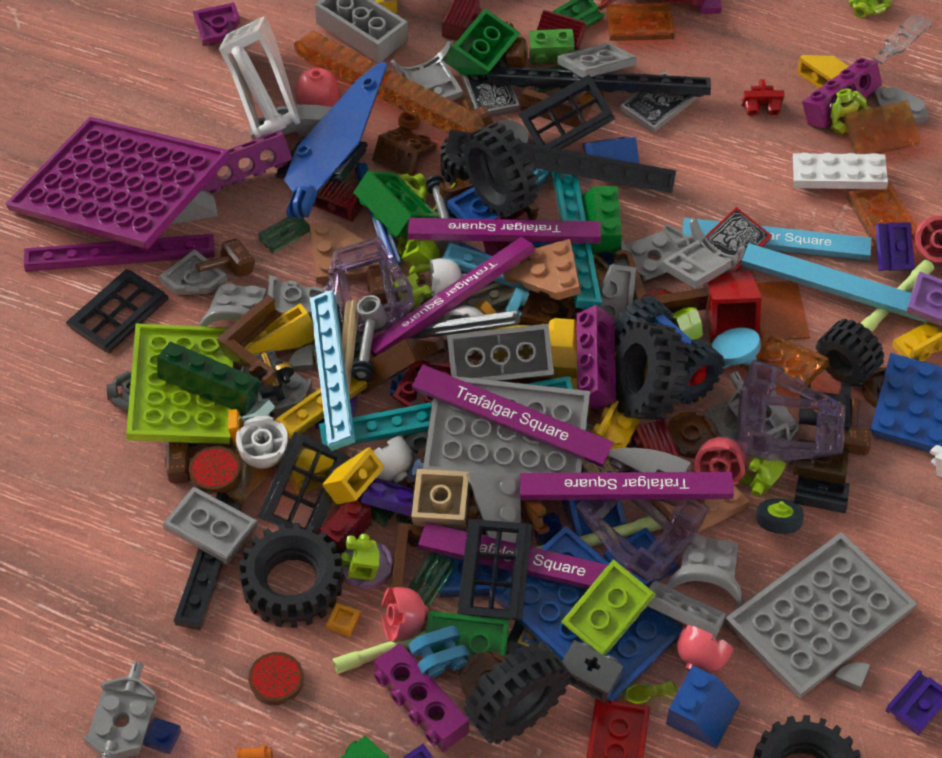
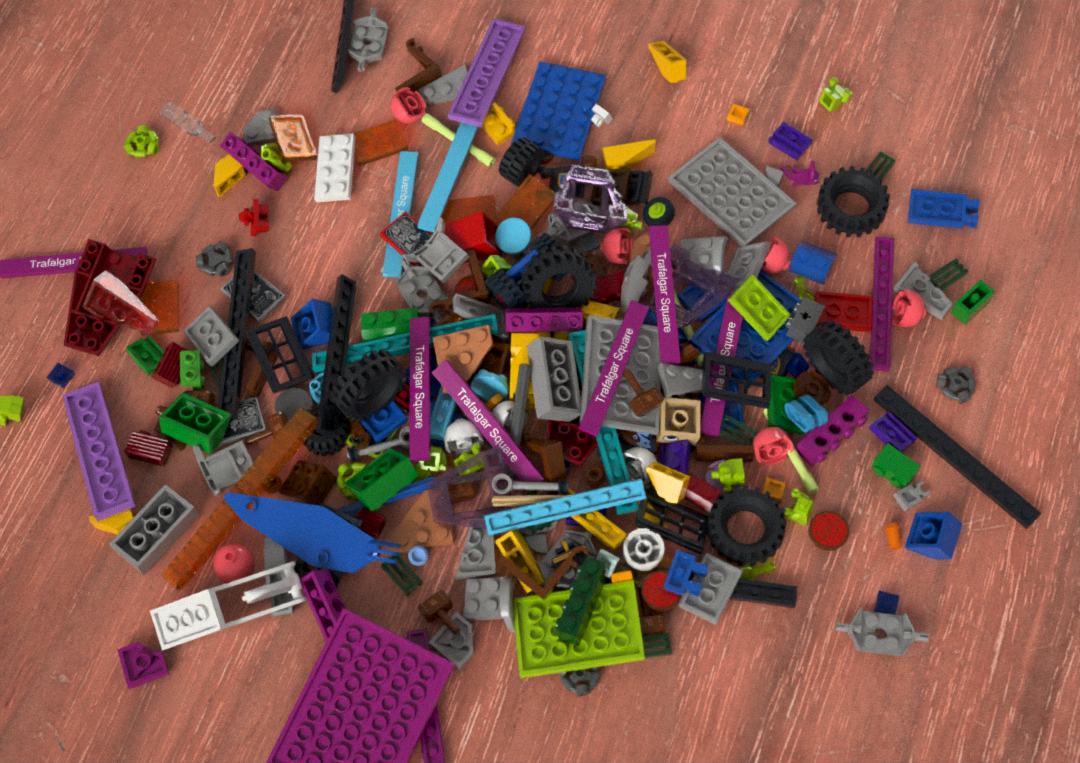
camera: 90 degrees left, 10 degrees up
(103, 297) = (481, 717): black piece -> none
(153, 483) = (665, 636): none -> clear green tile
(227, 481) = (680, 572): none -> blue plate
(230, 578) = (751, 572): none -> clear neon green piece
(302, 244) = (418, 555): none -> light blue plate
(306, 642) = (800, 509): none -> lime piece
(462, 451) = (645, 401): none -> reddish brown piece
(699, 64) = (220, 261): none -> dark grey piece
(854, 719) = (803, 176): none -> magenta piece
(874, 484) = (627, 155): none -> yellow slope
(894, 246) = (413, 134): dark purple plate -> none

